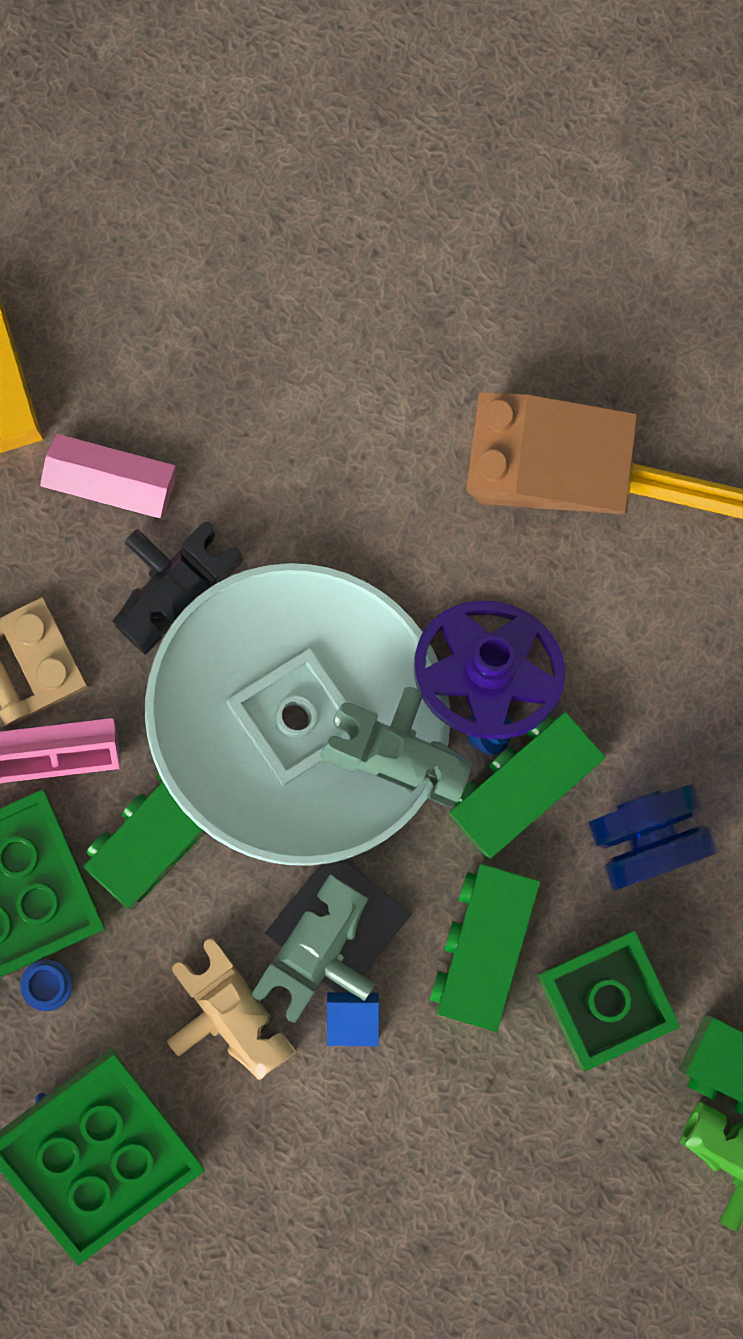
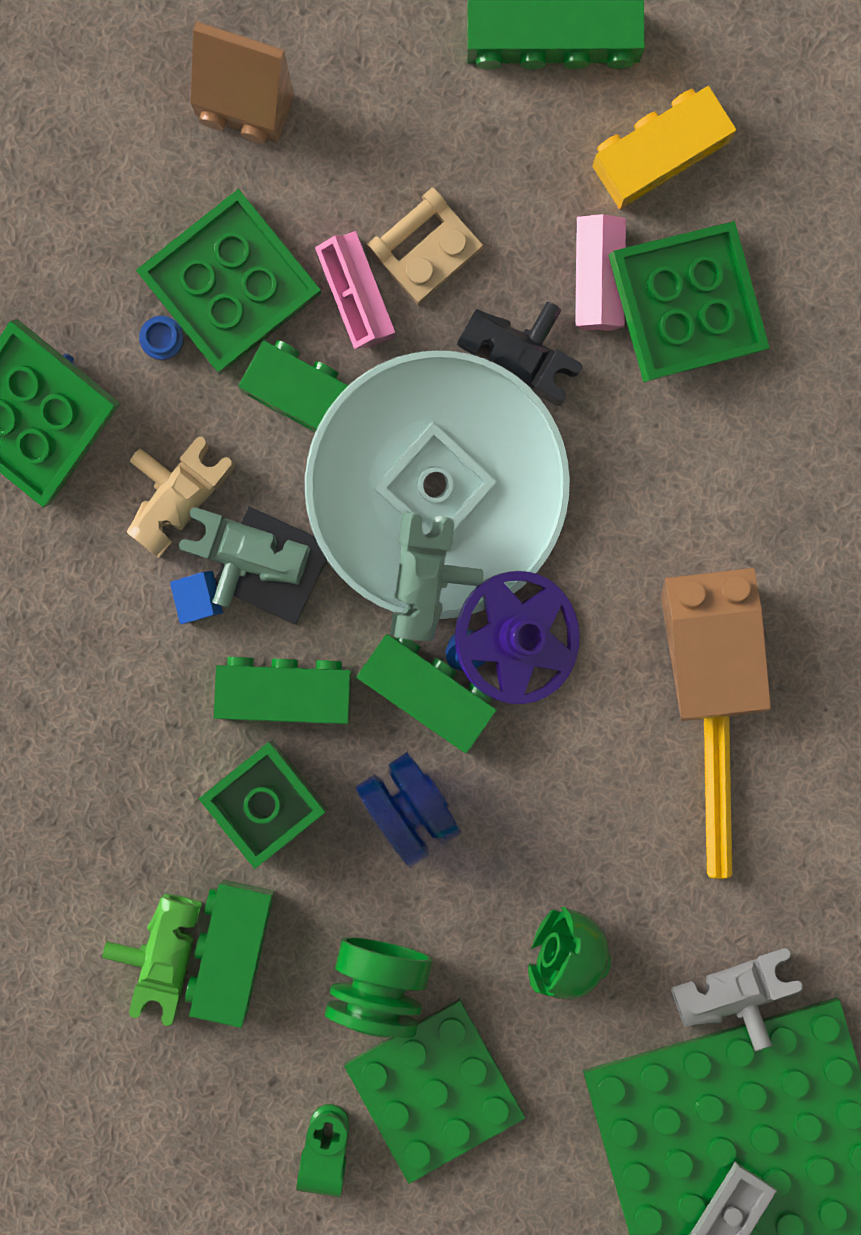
camera: 75 degrees right, 5 degrees up
(167, 389) = (688, 301): none -> green plate

